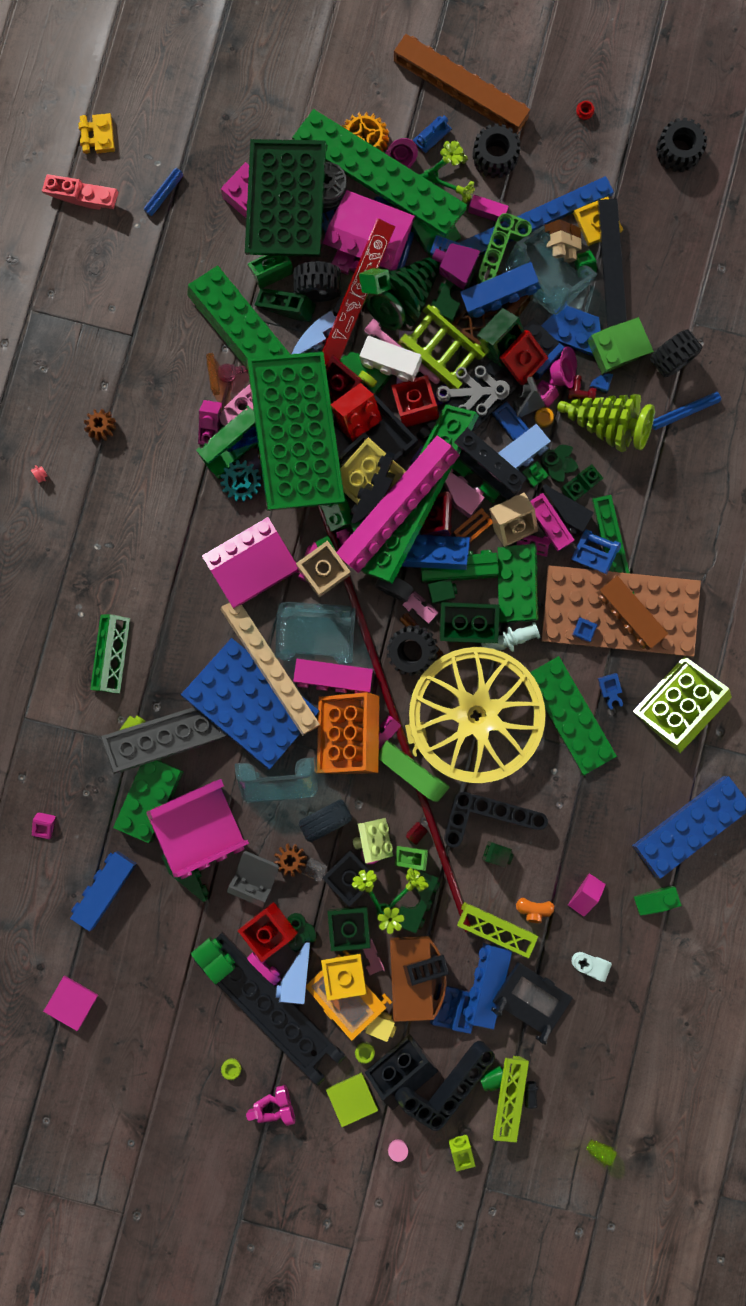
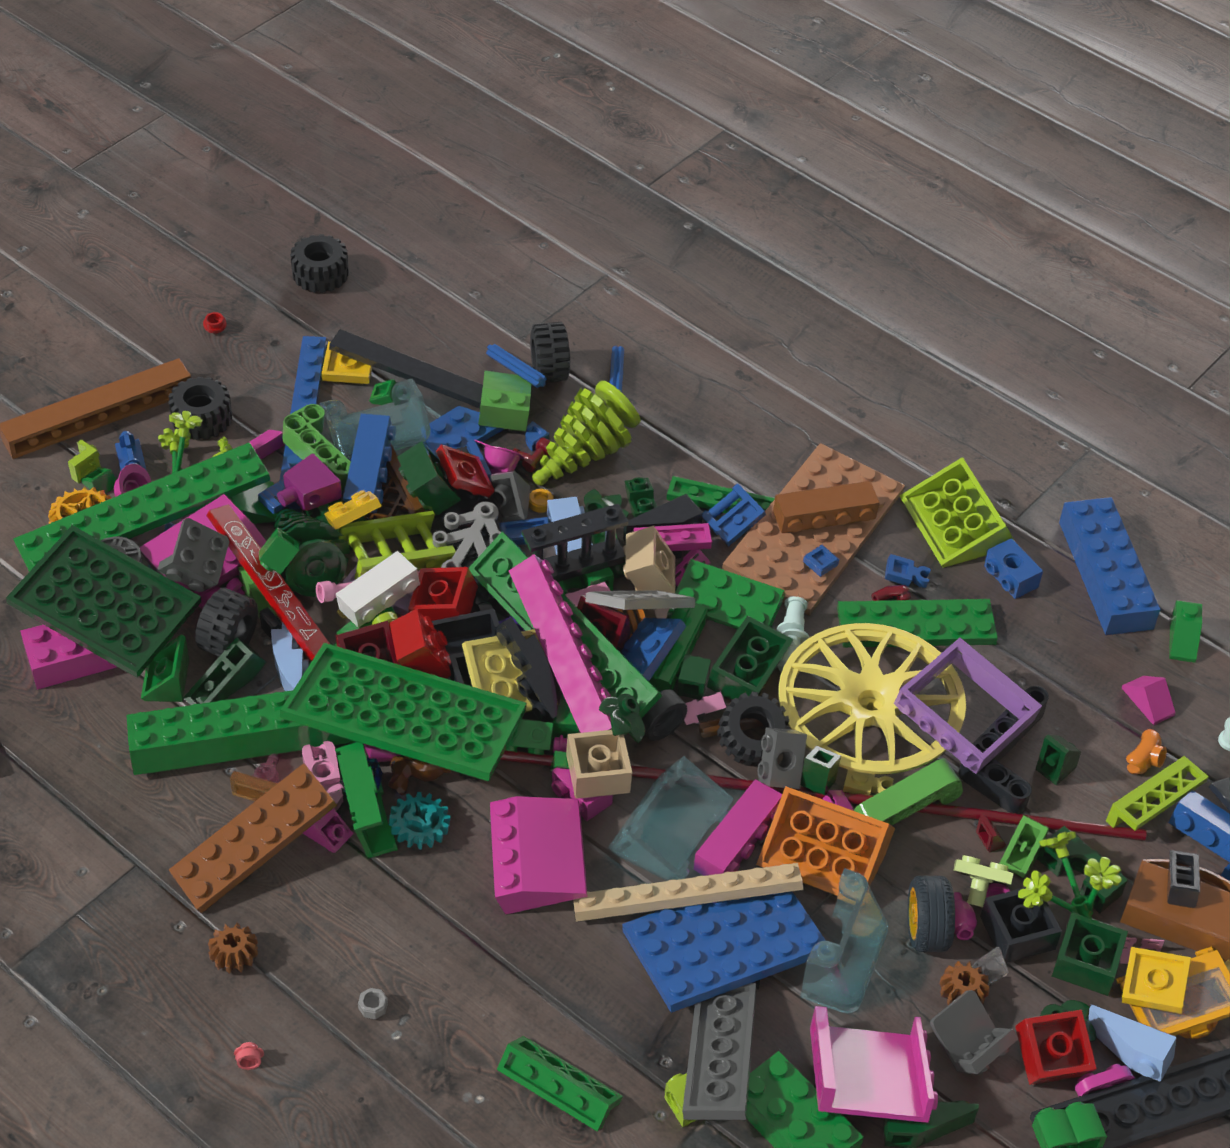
camera: 65 degrees left, 35 degrees down
(106, 523) = (373, 1003): none -> light grey tile
(171, 393) = (252, 838): none -> dark orange plate
(342, 233) = (196, 556): none -> dark grey bracket
(342, 838) = (964, 918): none -> dark pink plant
(358, 569) = (624, 716): none -> dark green plate
(393, 679) = (789, 770): none -> dark grey brick
(399, 707) = (820, 770): none -> dark green brick
(403, 127) = (100, 479): none -> green slope
(410, 109) = (84, 462): none -> lime bracket
(444, 305) = (360, 505): none -> yellow plate
(465, 531) = (640, 599): none -> light grey tile
(524, 792) = (989, 679): none -> medium lavender window
(564, 240) = (351, 391): tan hips -> none
(589, 688) = (888, 592): none -> dark red arm
(655, 336) = (516, 365): none -> blue axle
(662, 755) = (1013, 568): none -> blue brick

